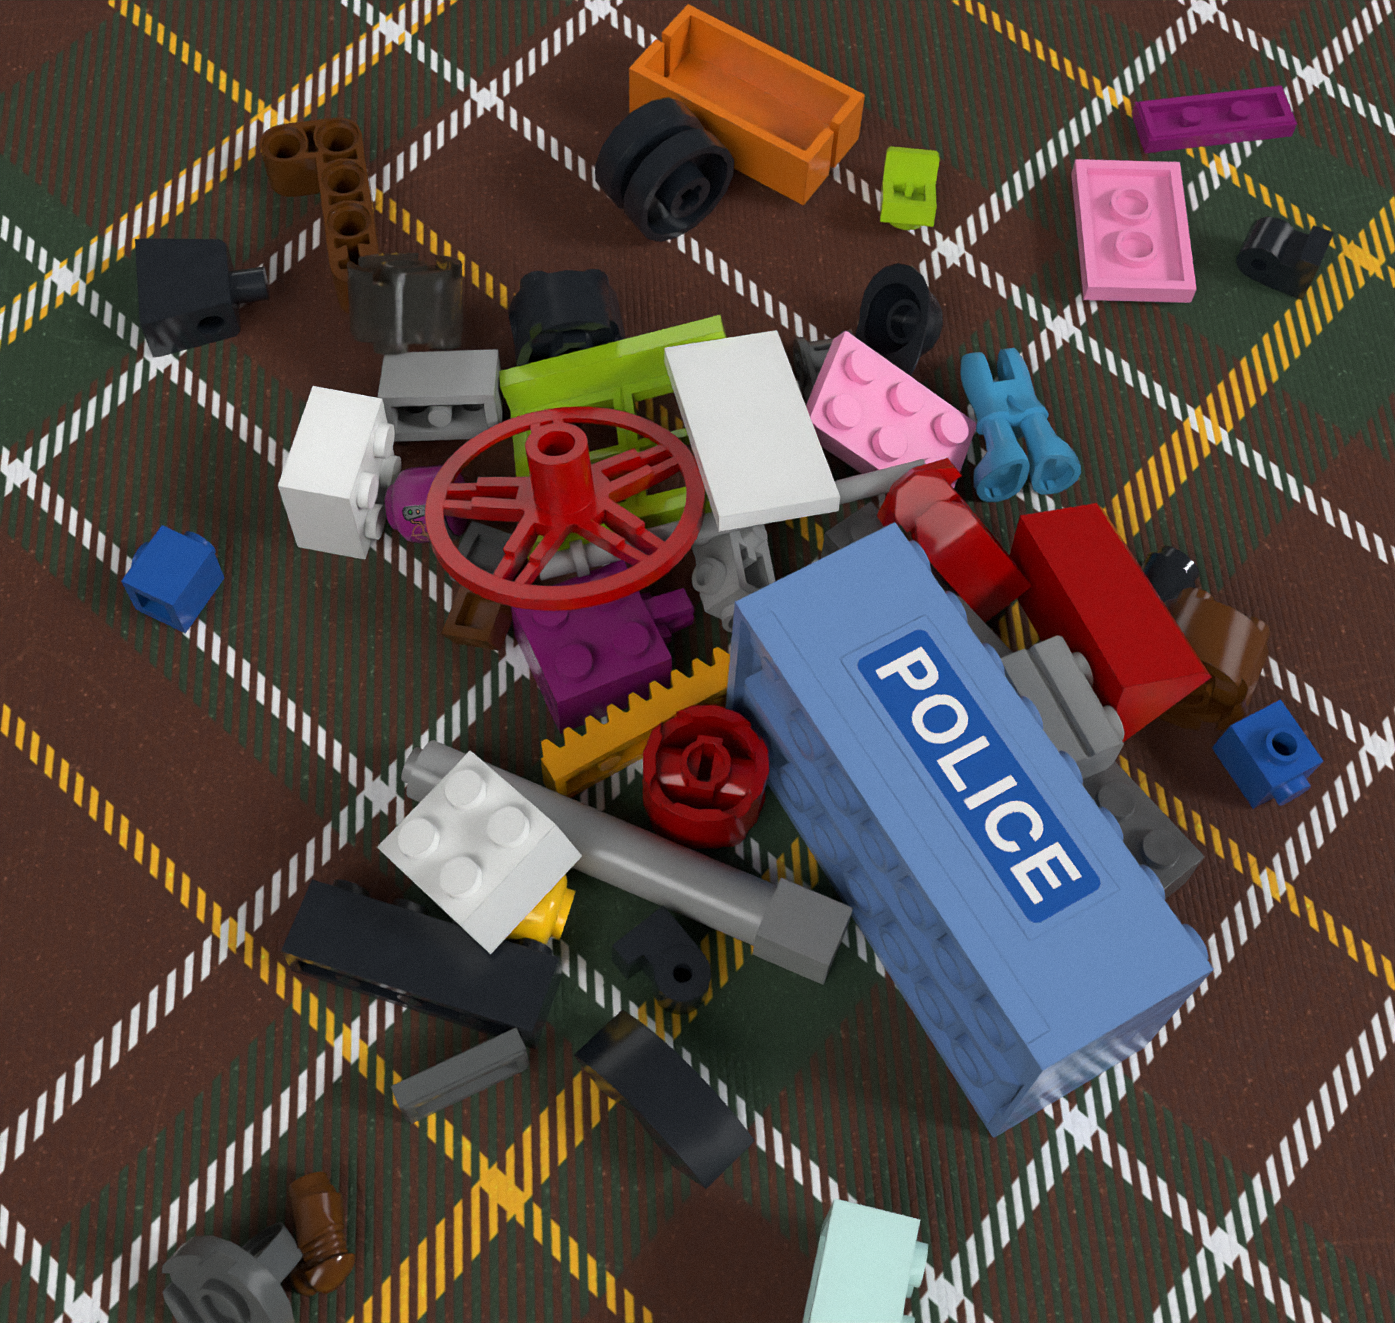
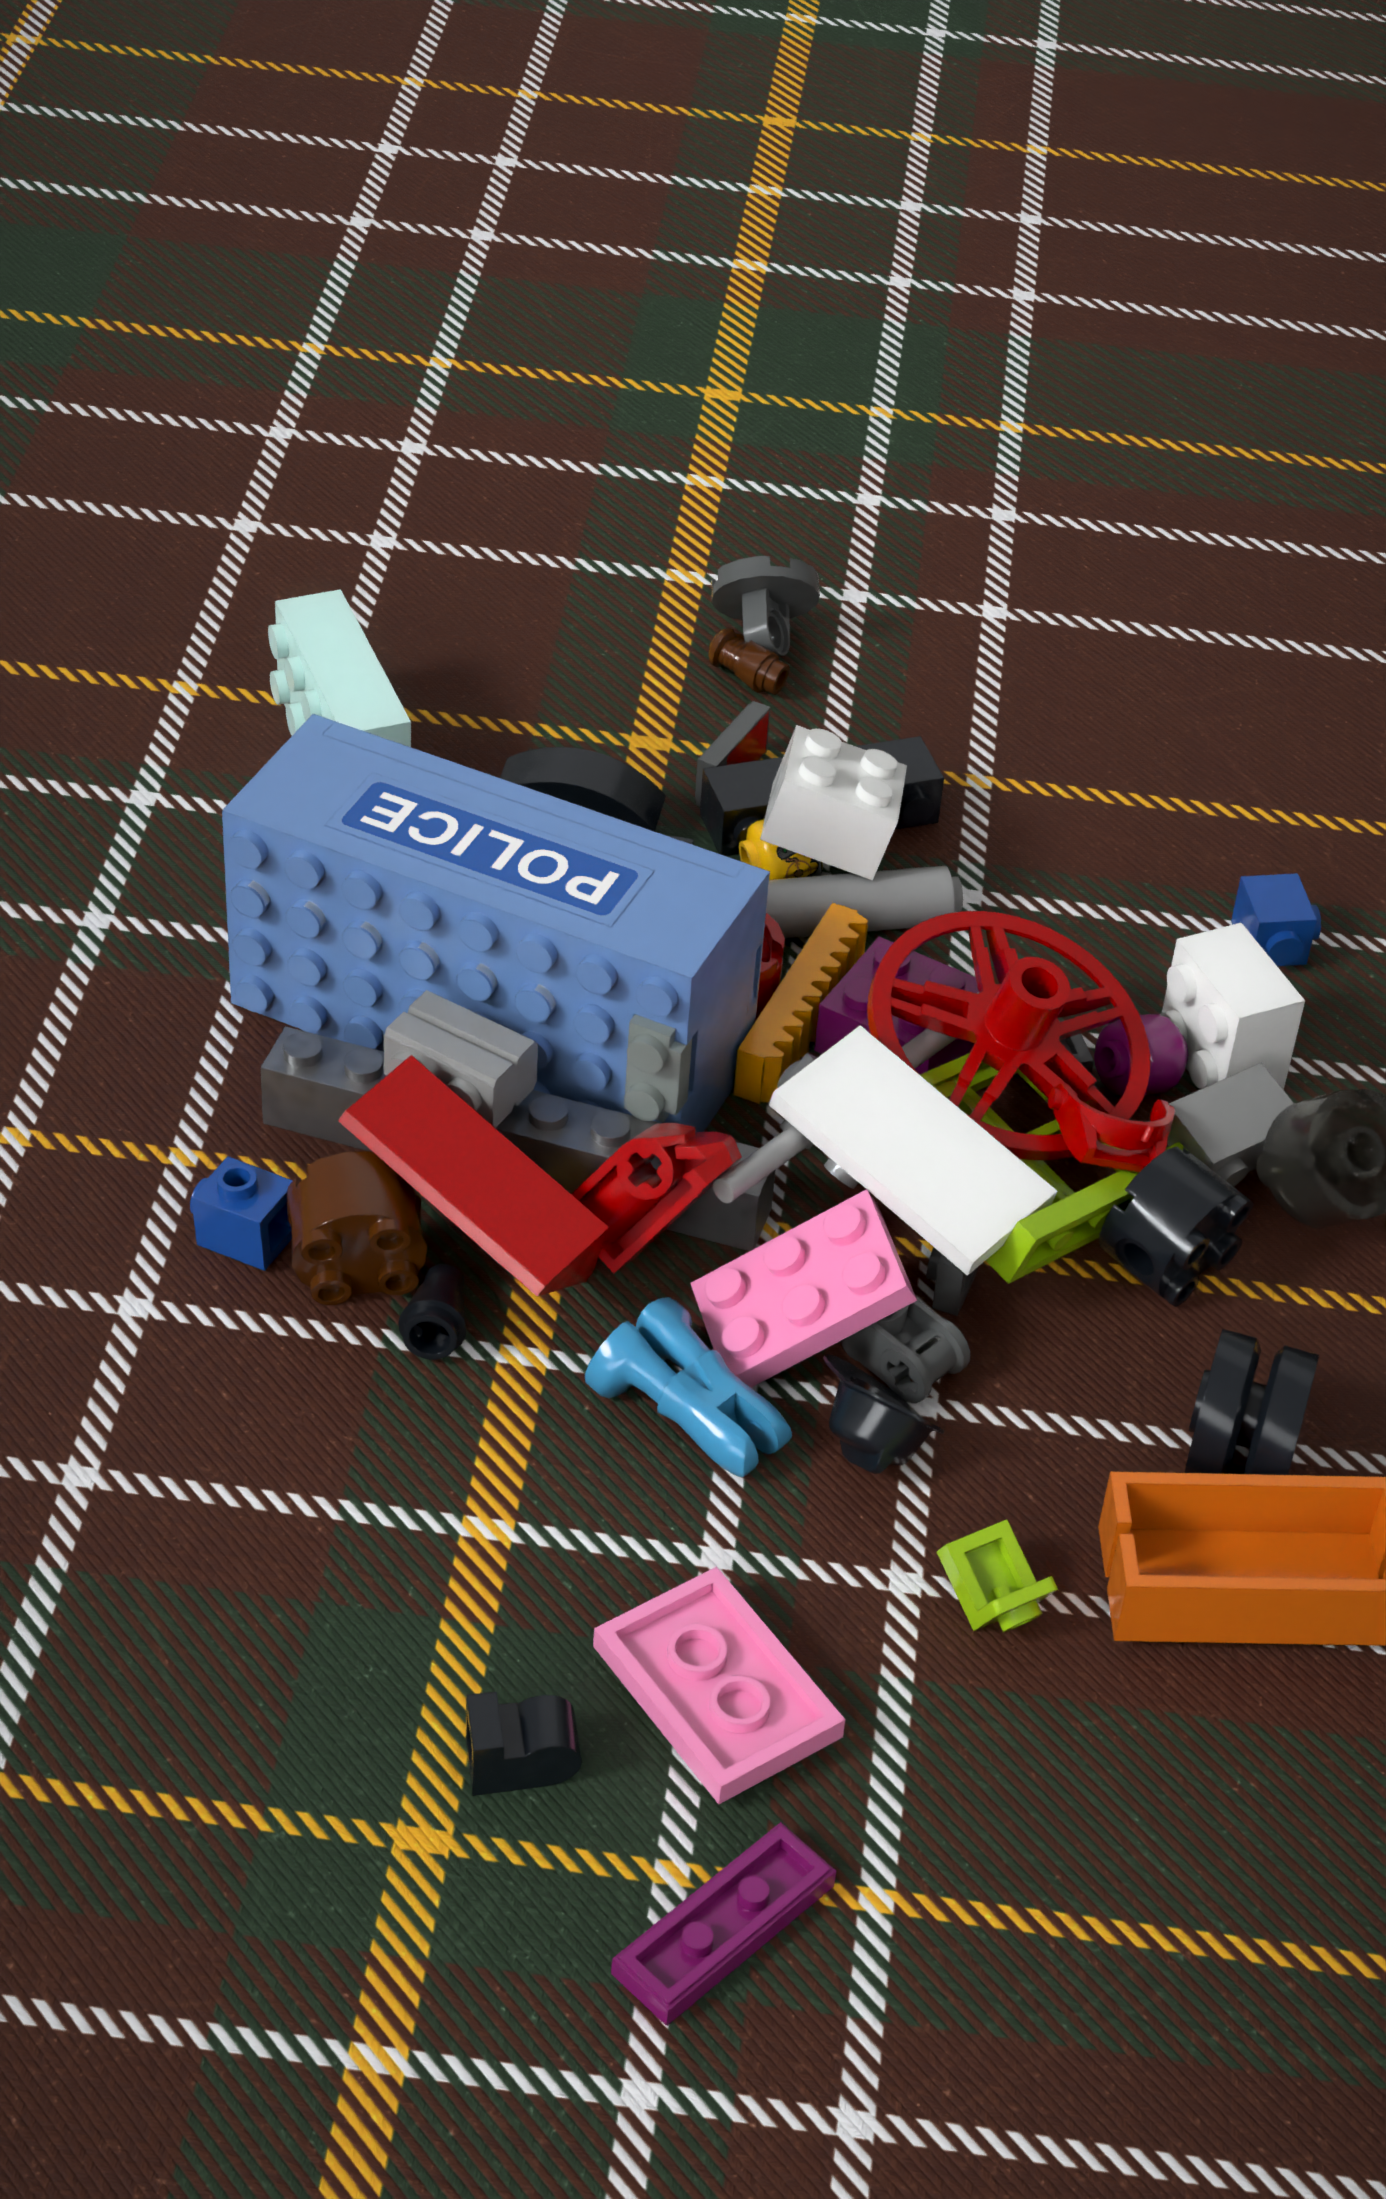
camera: 145 degrees right, 20 degrees down
(556, 362) = (1085, 1125): none -> red helmet

